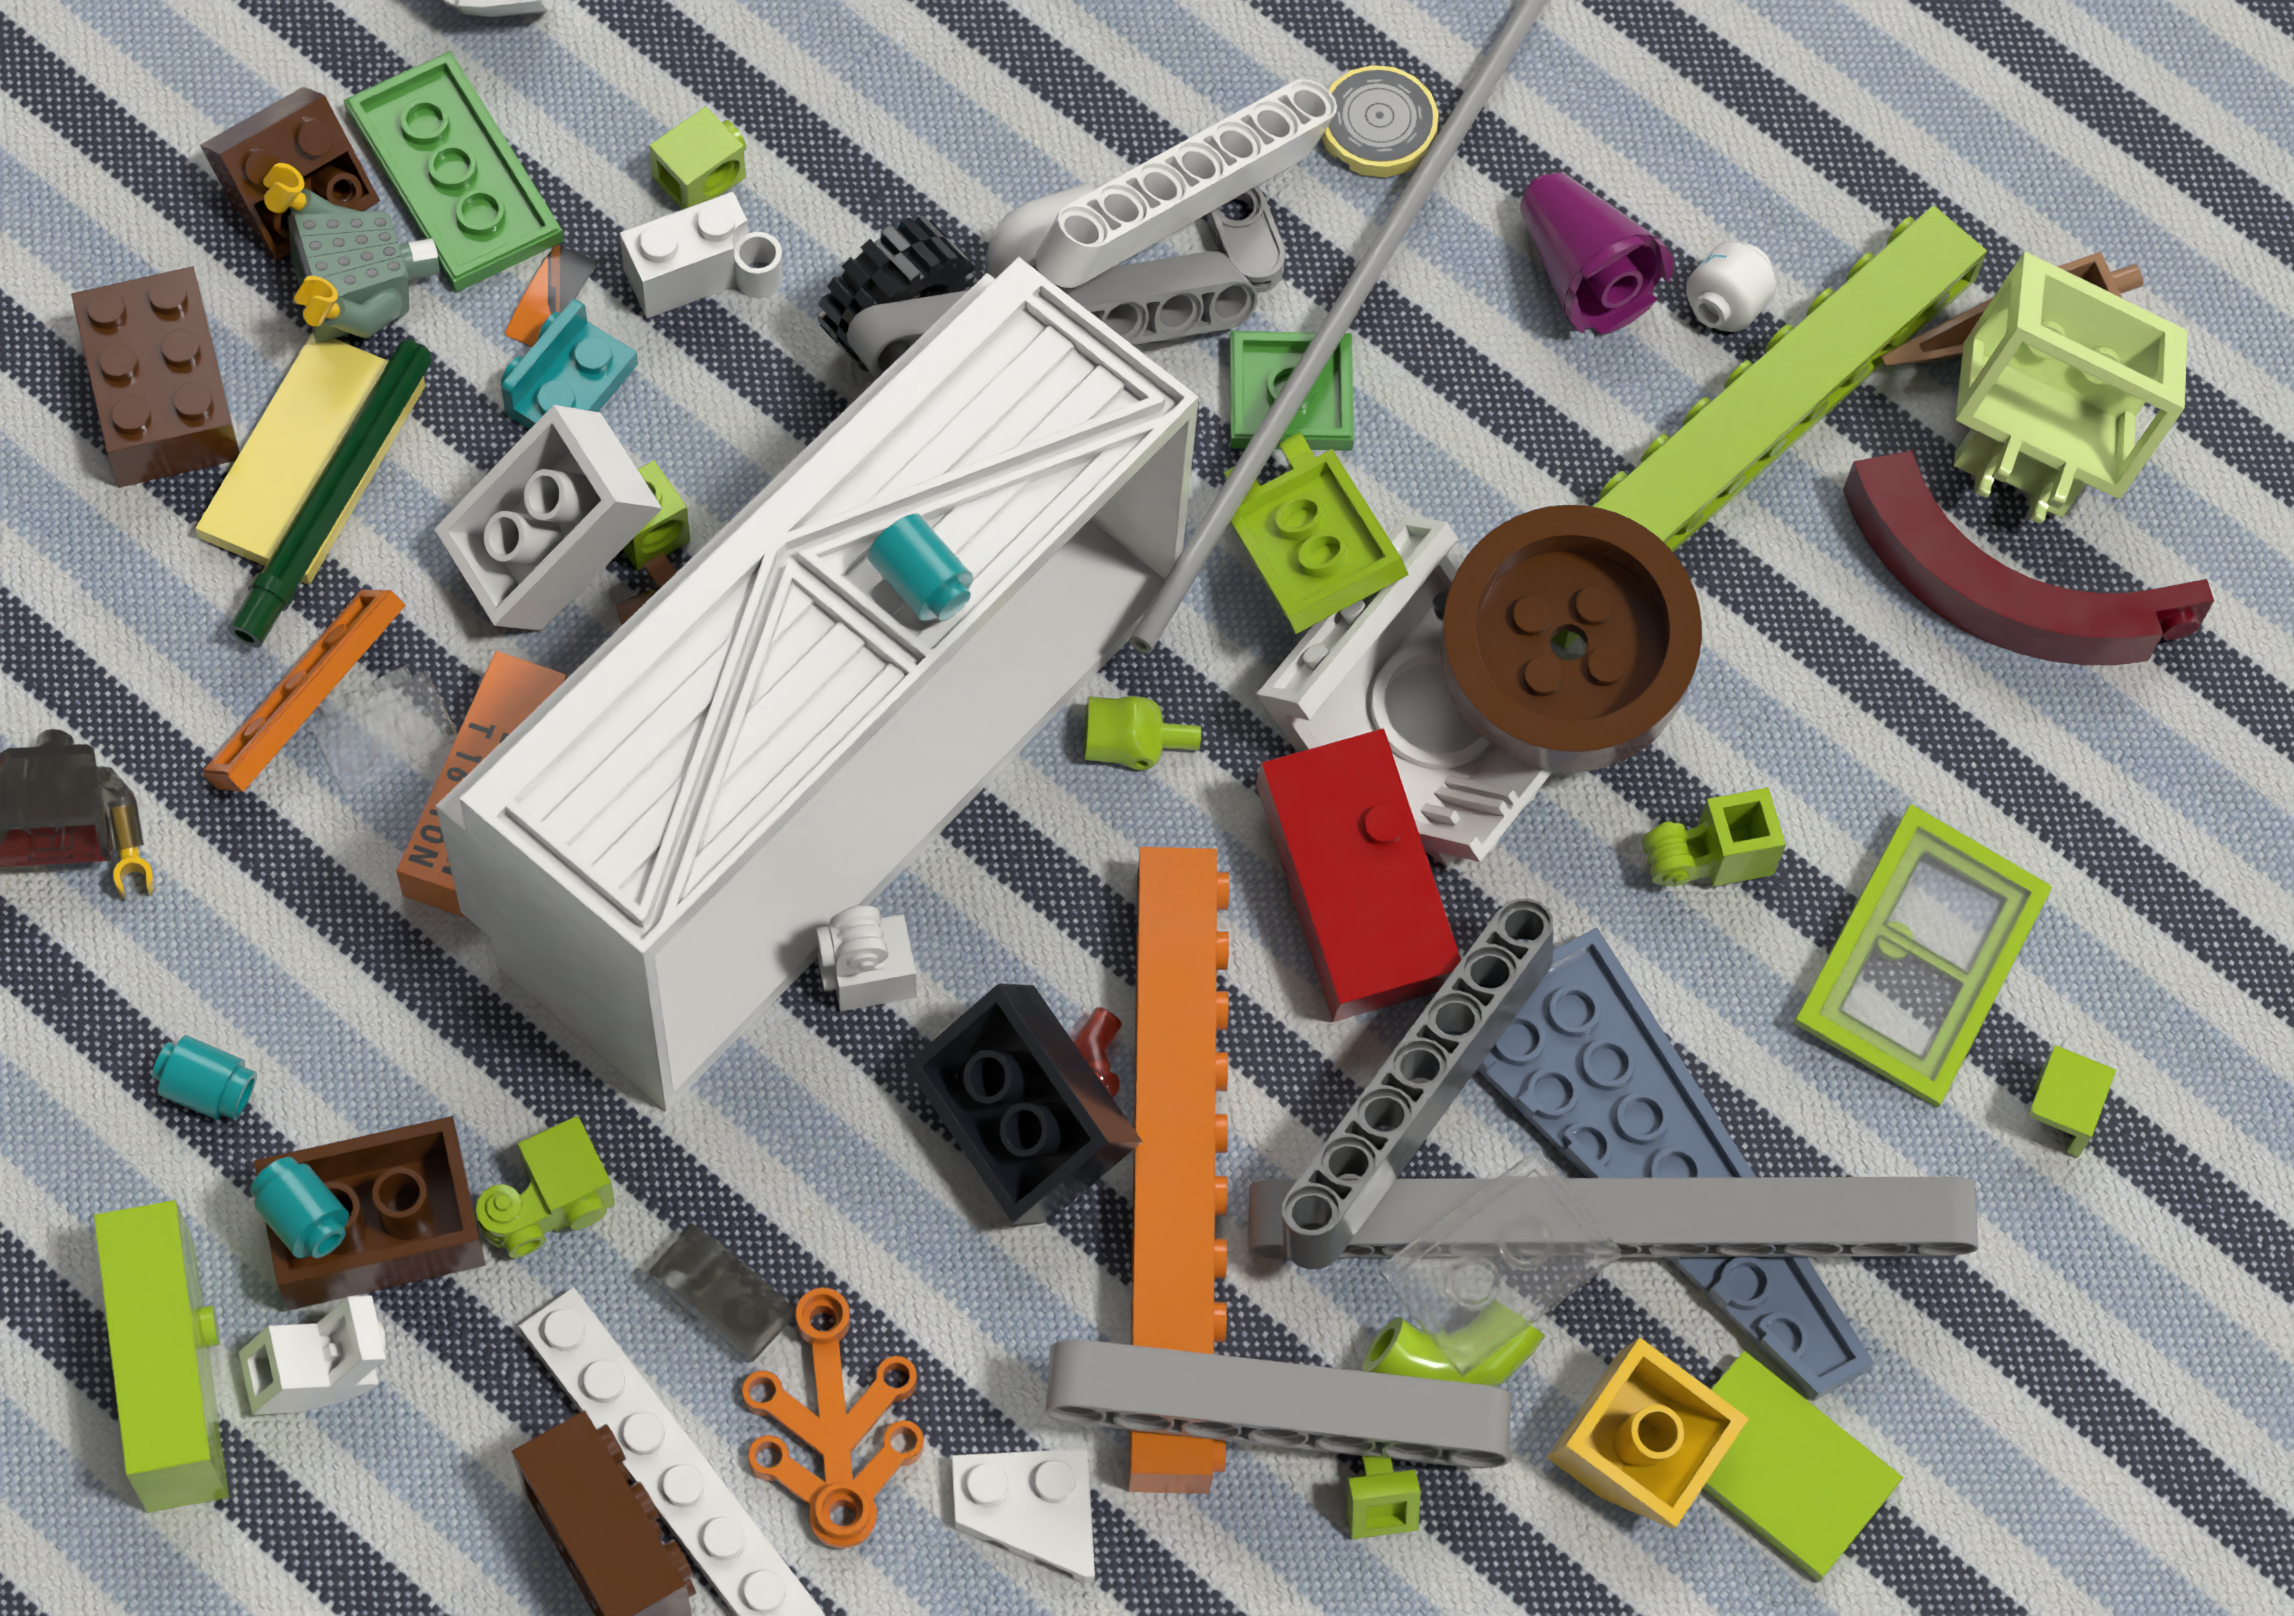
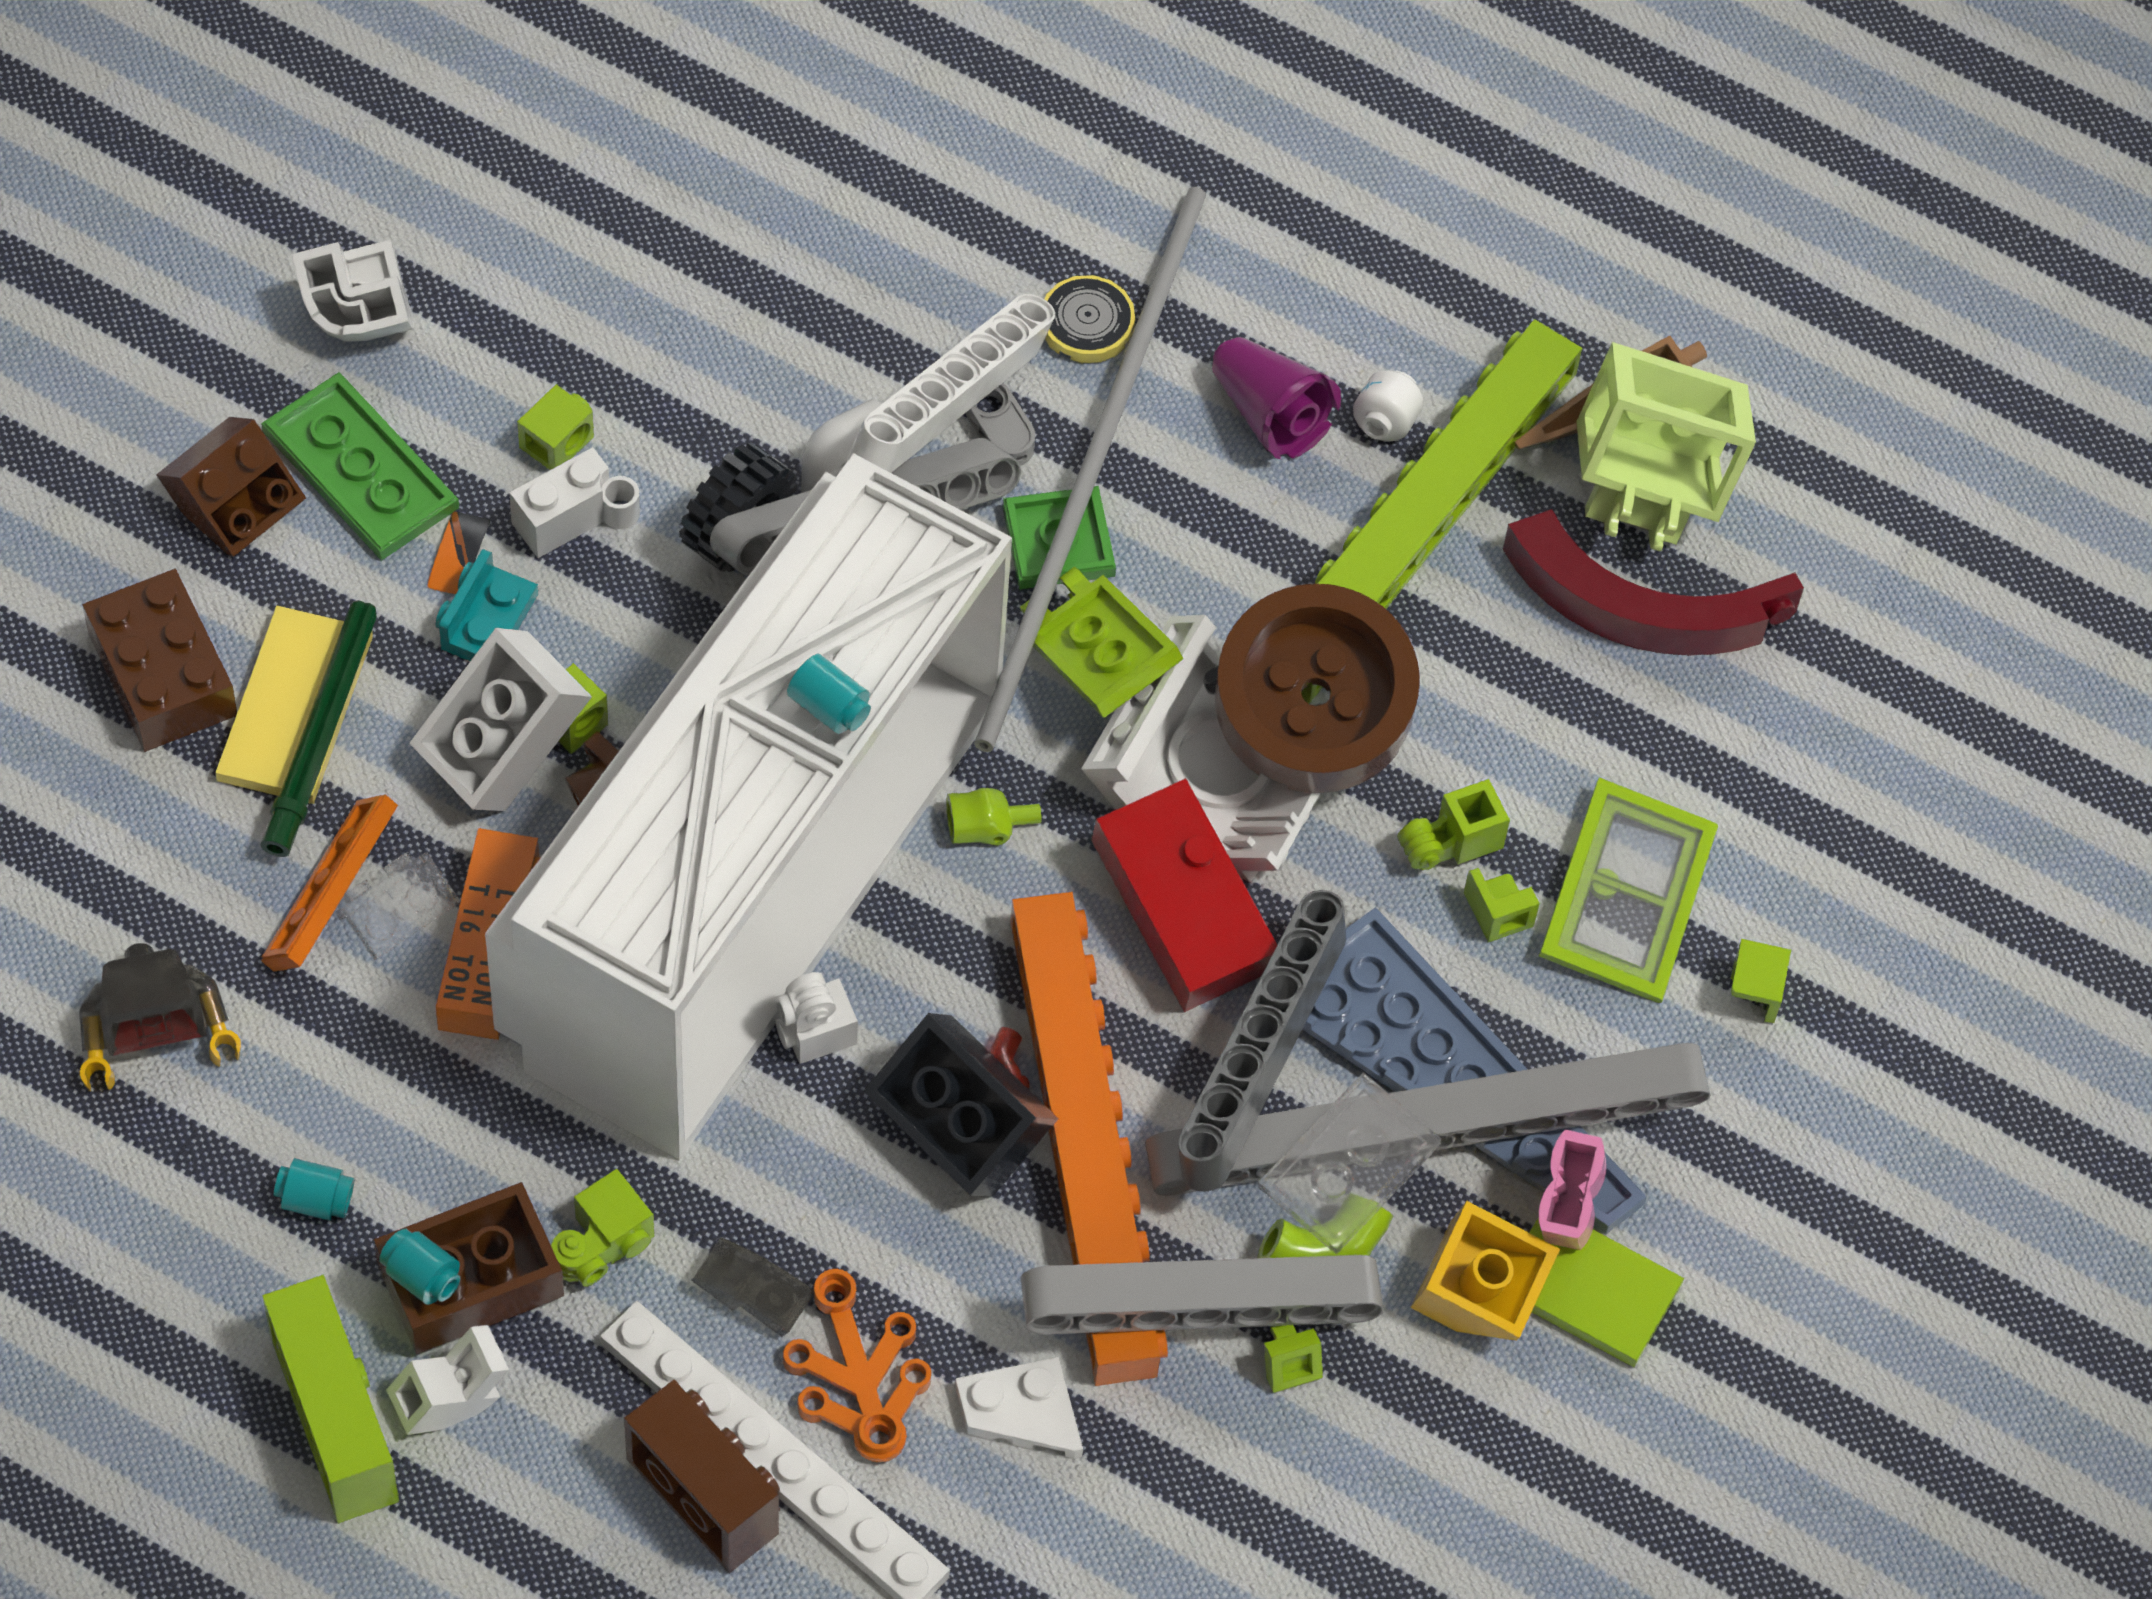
camera: 10 degrees left, 5 degrees down
(346, 260) = (293, 548): sand green torso -> none
(1756, 948) = (1500, 904): none -> lime panel
(1787, 1327) = (1567, 1203): none -> bright pink brick

